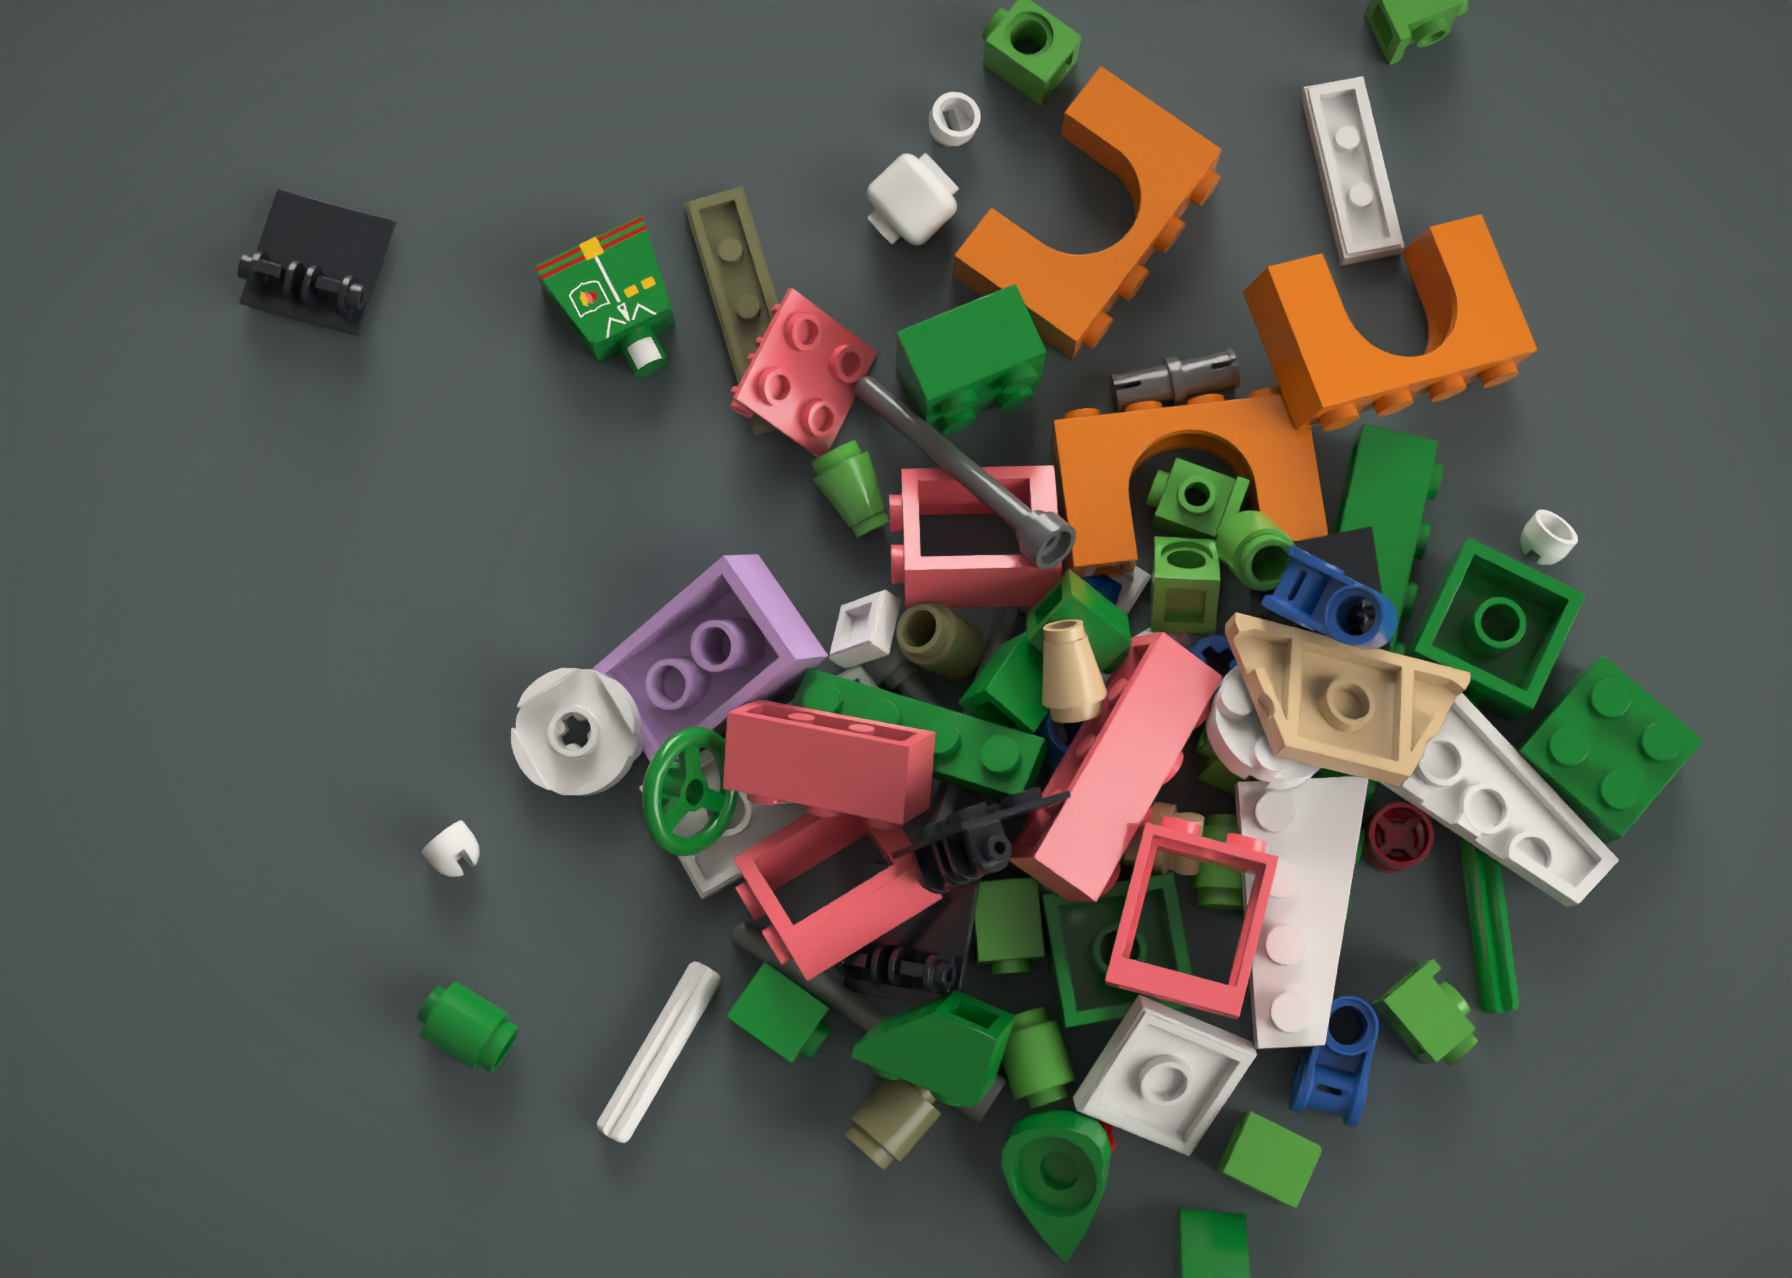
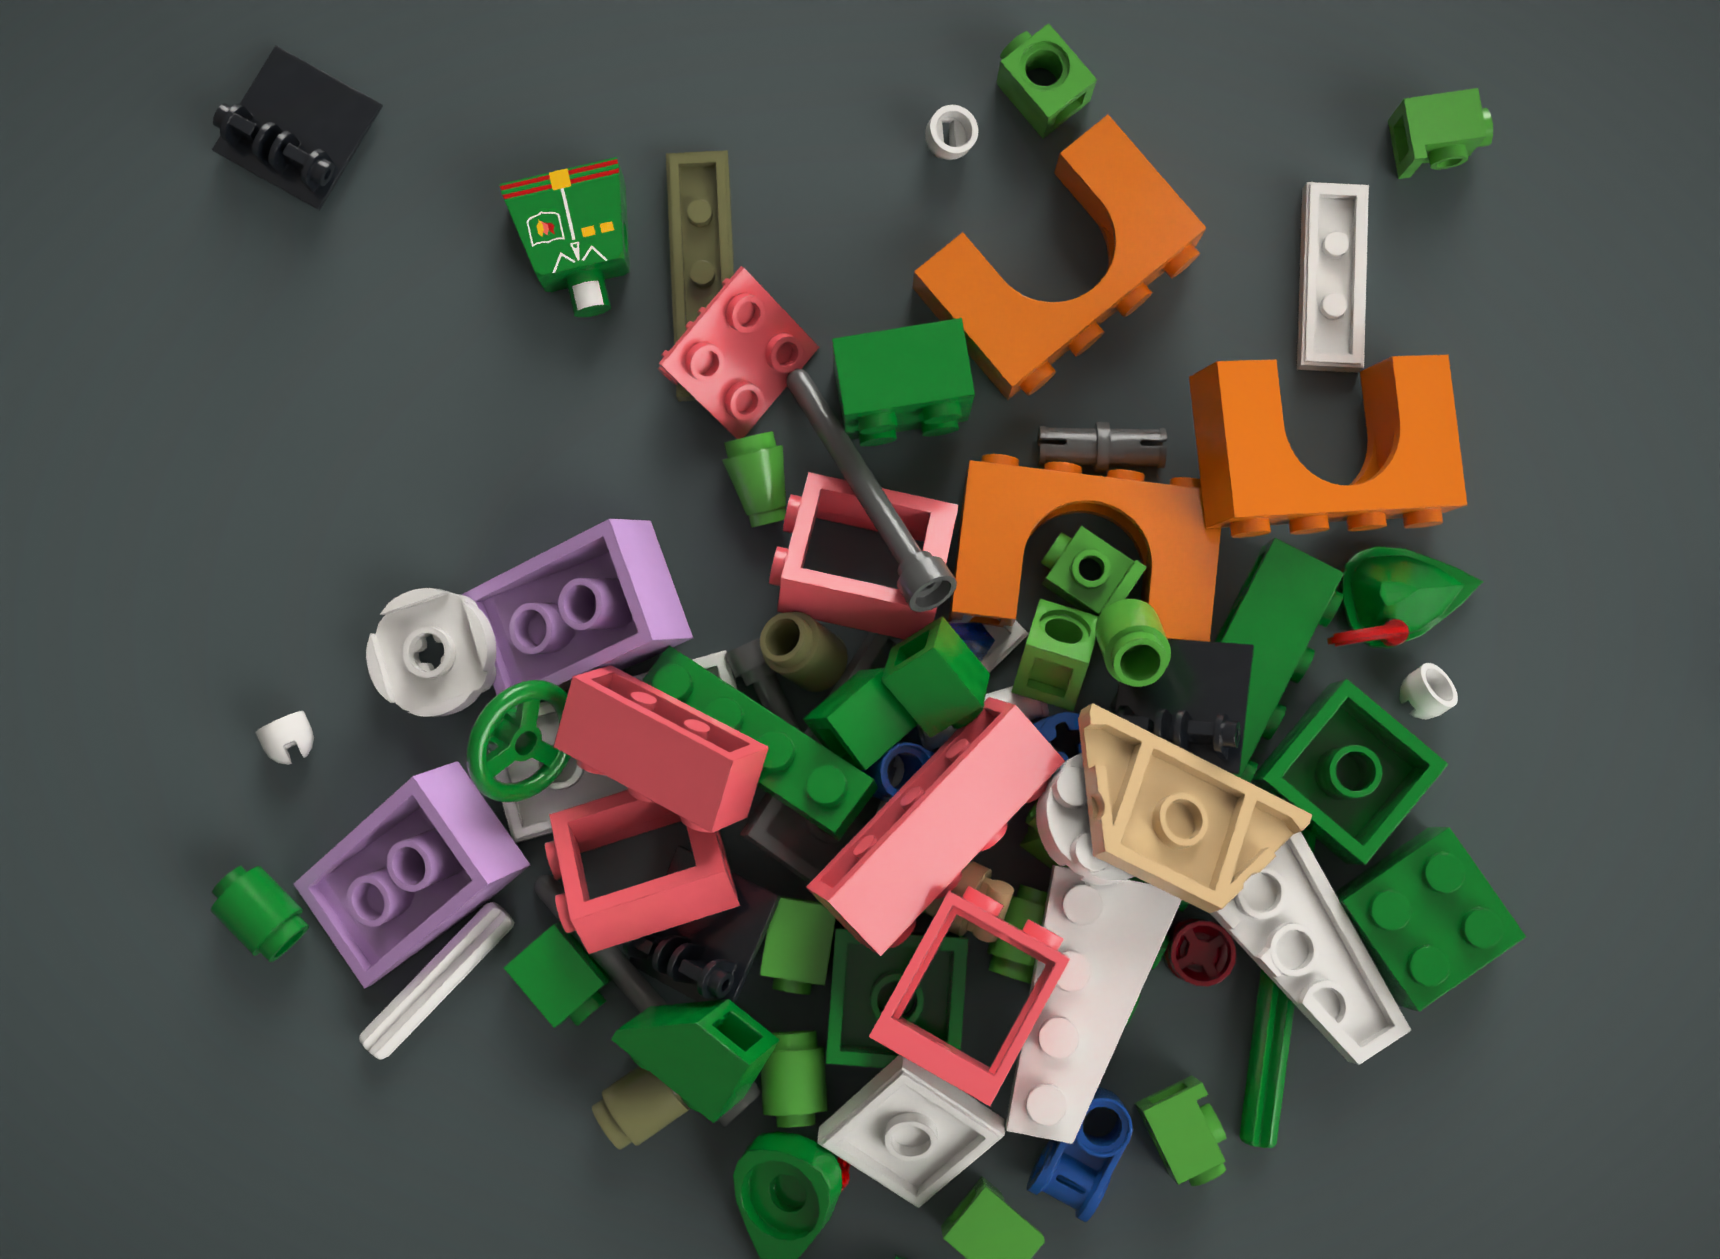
camera: 15 degrees right, 5 degrees up
(607, 951) = (410, 871): none -> lavender slope
(865, 629) = (734, 621): white tile -> none
(911, 199) = (889, 204): white head -> none
(970, 841) = (770, 870): black hinge -> none
(1070, 673) = (914, 724): tan cone -> none
(1321, 597) = (1179, 708): blue piece -> none
(1494, 454) = (1397, 596): none -> green piece

